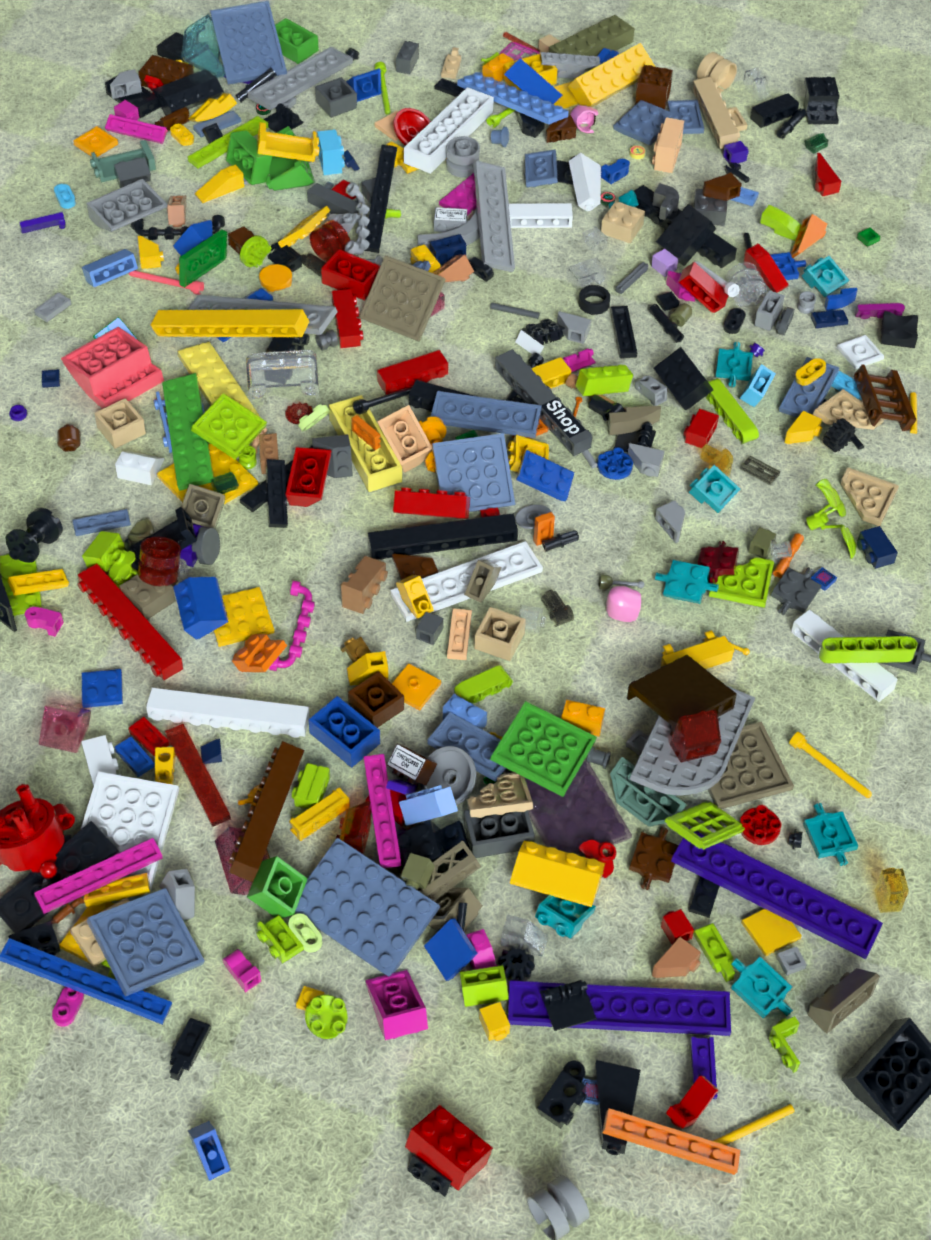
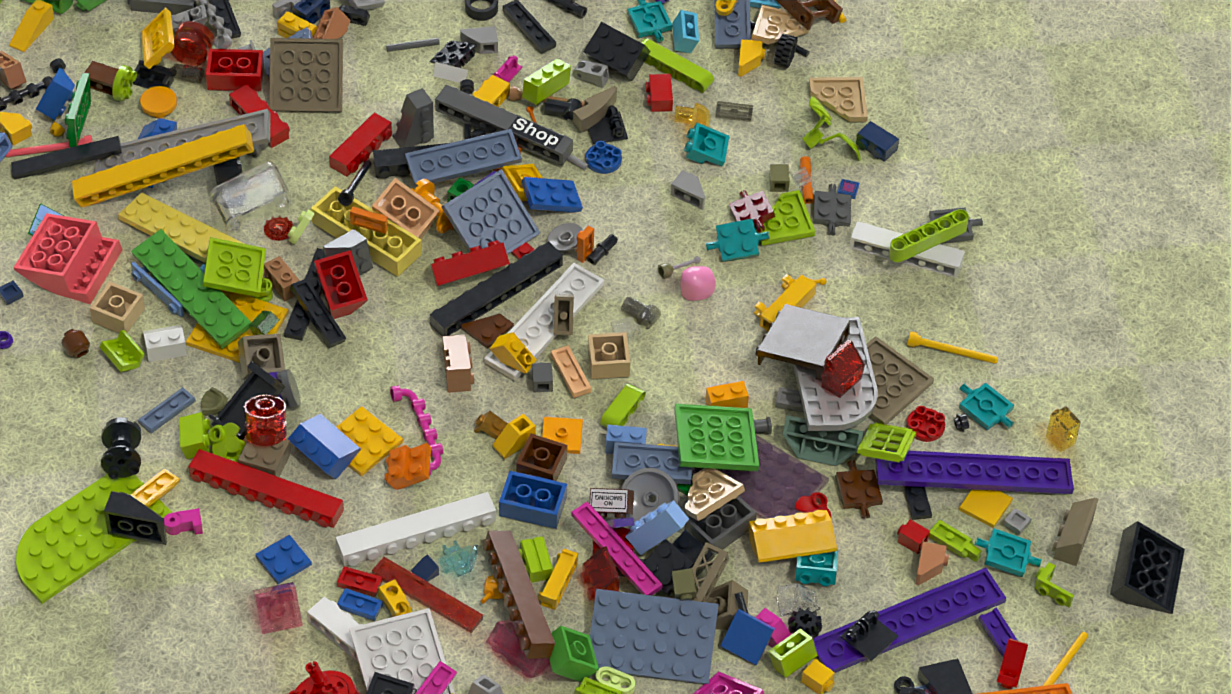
camera: 30 degrees left, 0 degrees up
(99, 460) = (123, 352): none -> lime bracket
(170, 291) = (66, 157): none -> black tile
(250, 757) = (453, 561): none -> clear light blue piece
(466, 370) = (416, 120): none -> dark grey wedge
(646, 459) = (631, 142): light grey slope -> none

